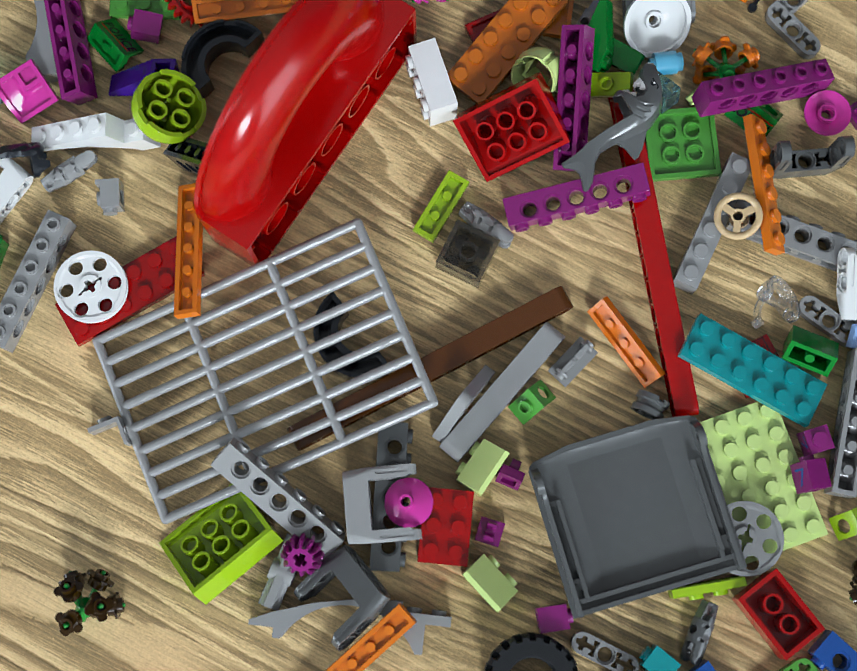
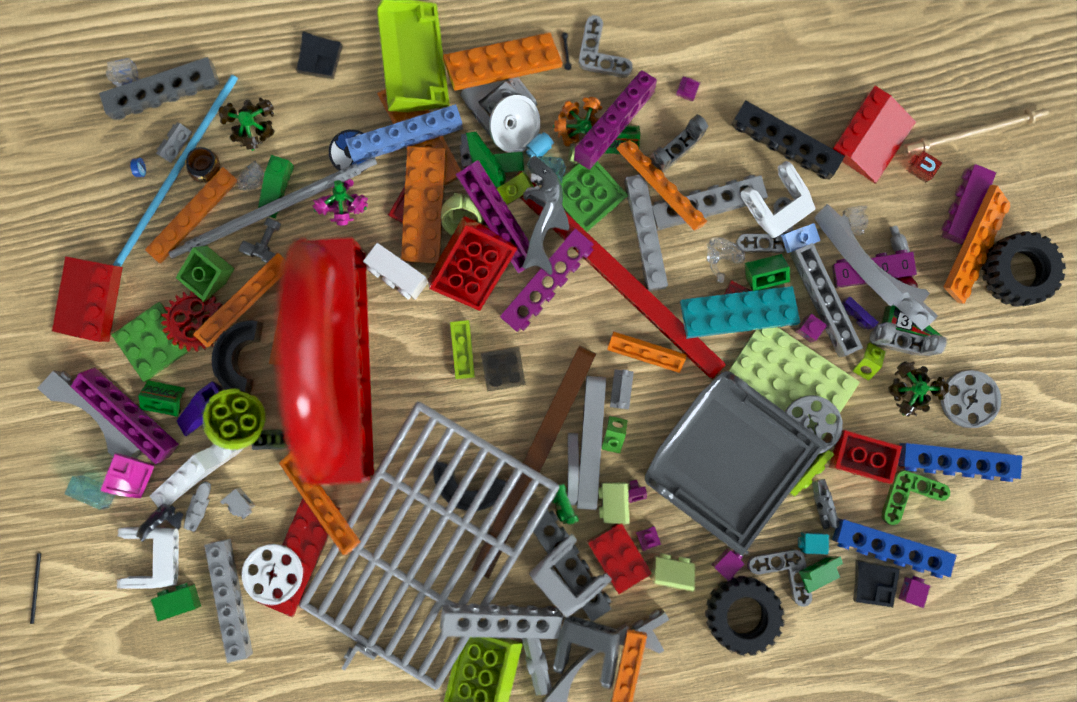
camera: 40 degrees left, 5 degrees up
(145, 26) = (174, 371): magenta brick -> none
(293, 552) = (542, 646): magenta gear -> none
(420, 502) = (589, 552): dark pink dish -> none
(424, 439) = (564, 509): none -> green plate
(486, 223) = (500, 340): light grey hinge -> none
(649, 405) = (691, 382): dark grey wheel -> none
(738, 224) = (668, 232): tan piece -> none
(810, 474) = (824, 353): magenta brick -> none
(834, 105) = (670, 96): dark pink dish -> none

